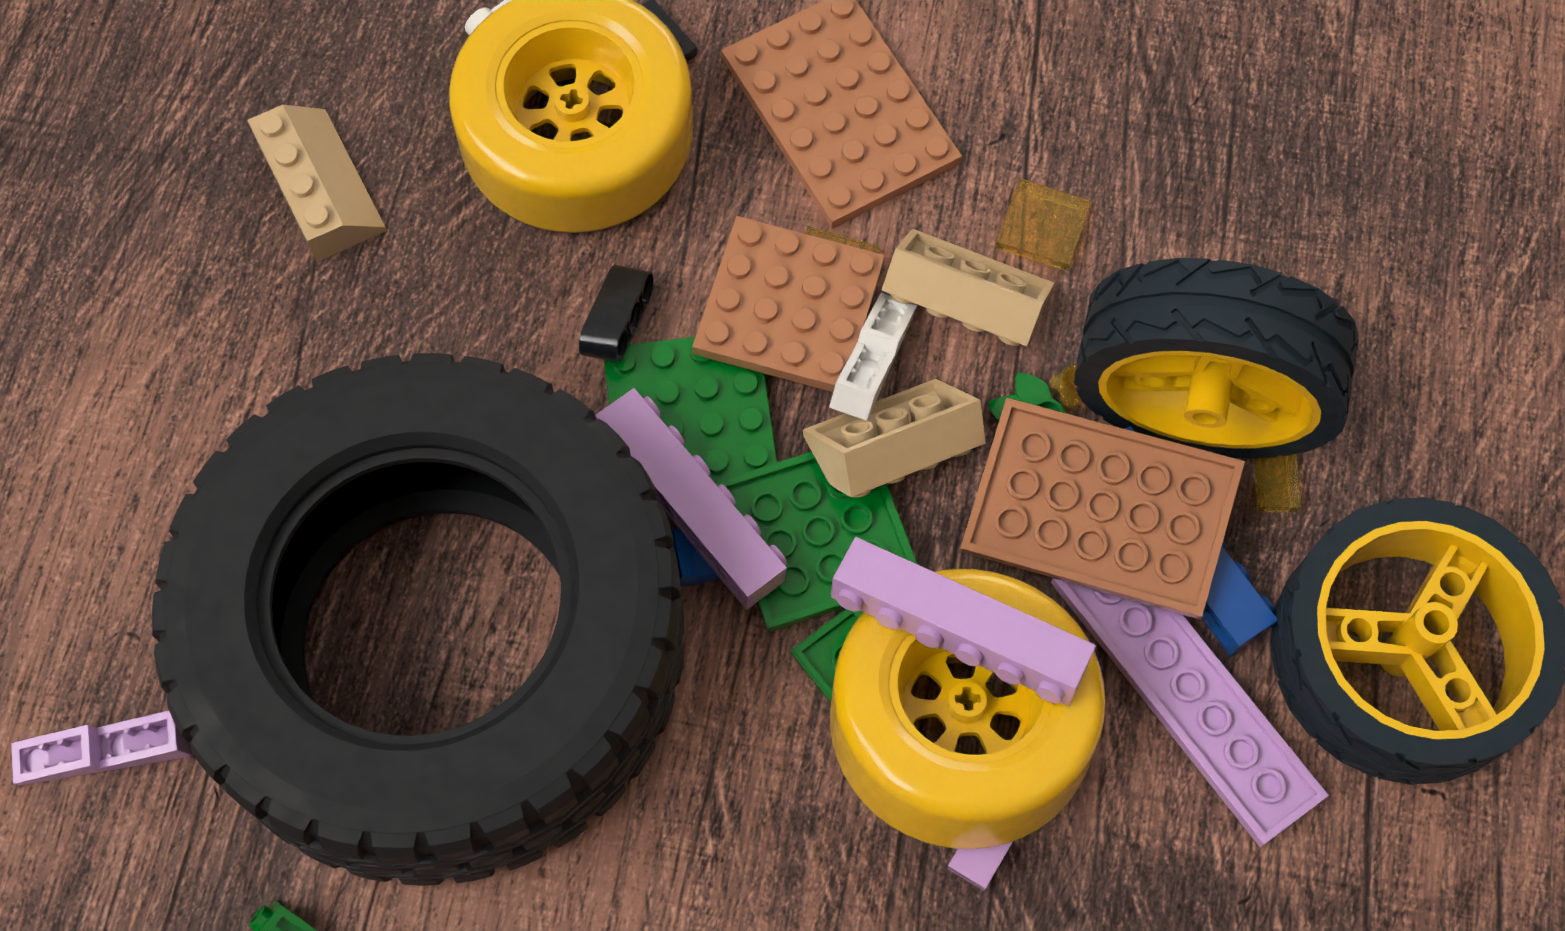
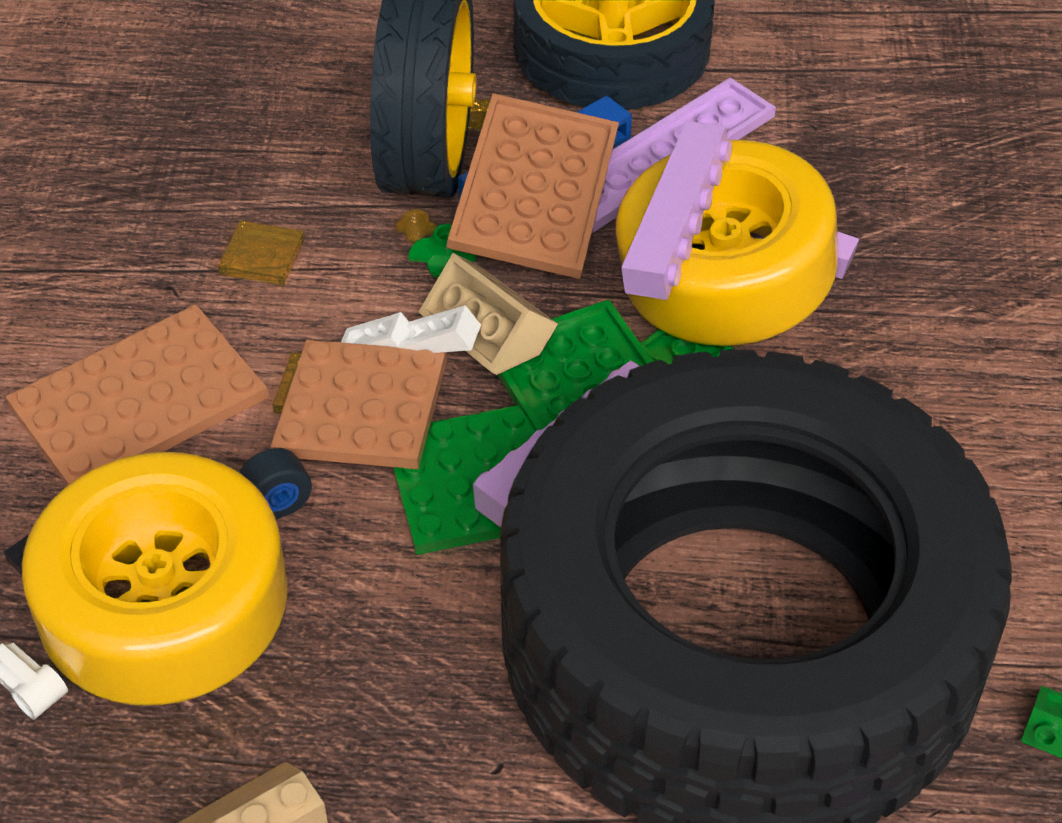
camera: 95 degrees left, 20 degrees down
(616, 313) = (382, 528): black beam -> none
(689, 219) = (280, 479): none -> black wheel
(967, 287) = (331, 288): tan slope -> none

